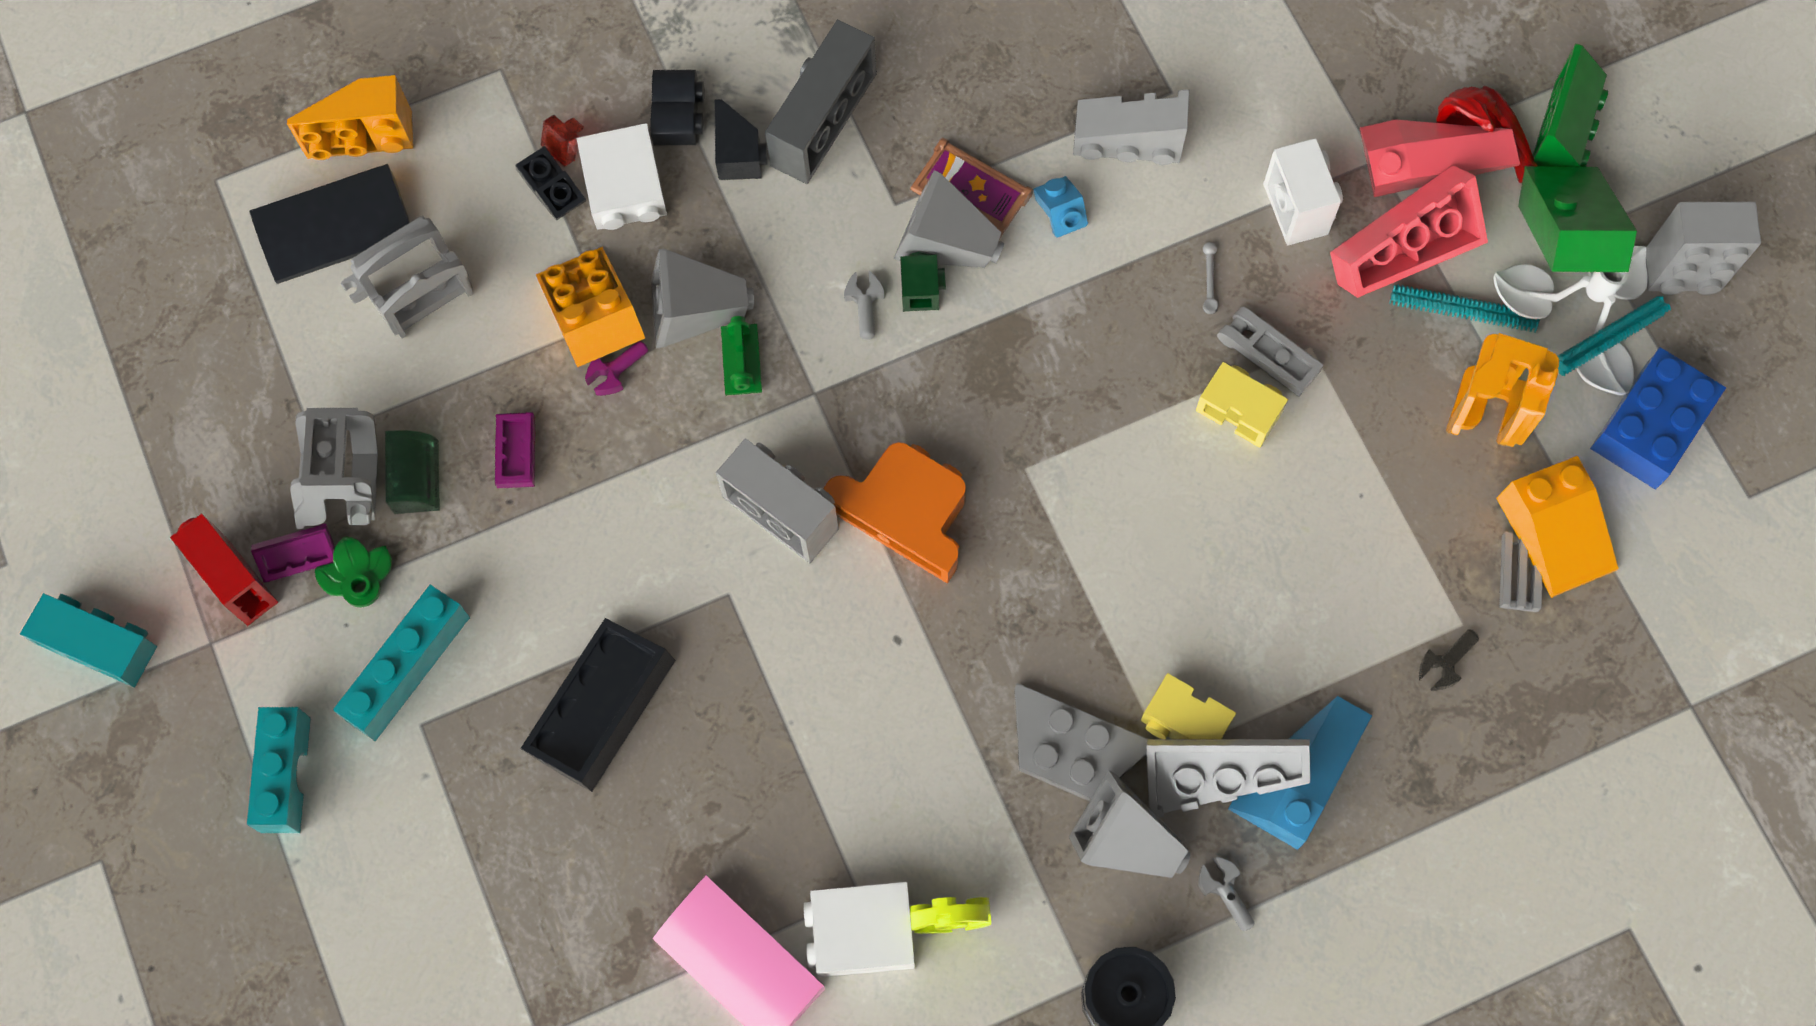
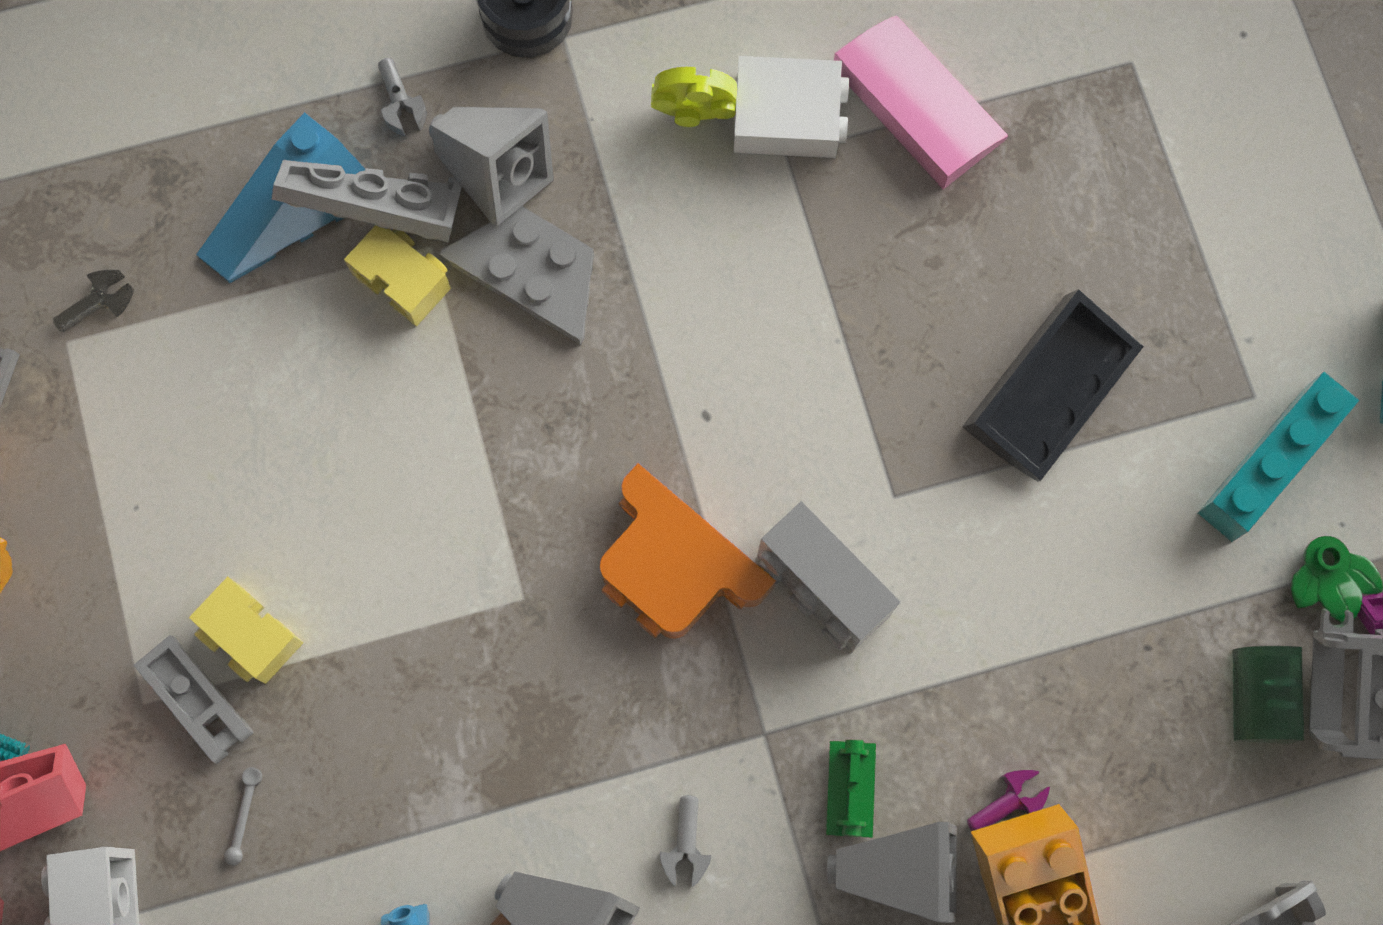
camera: 175 degrees left, 5 degrees up
(515, 450) = (1140, 705): magenta plate -> none
(921, 282) = (610, 857): dark green brick -> none

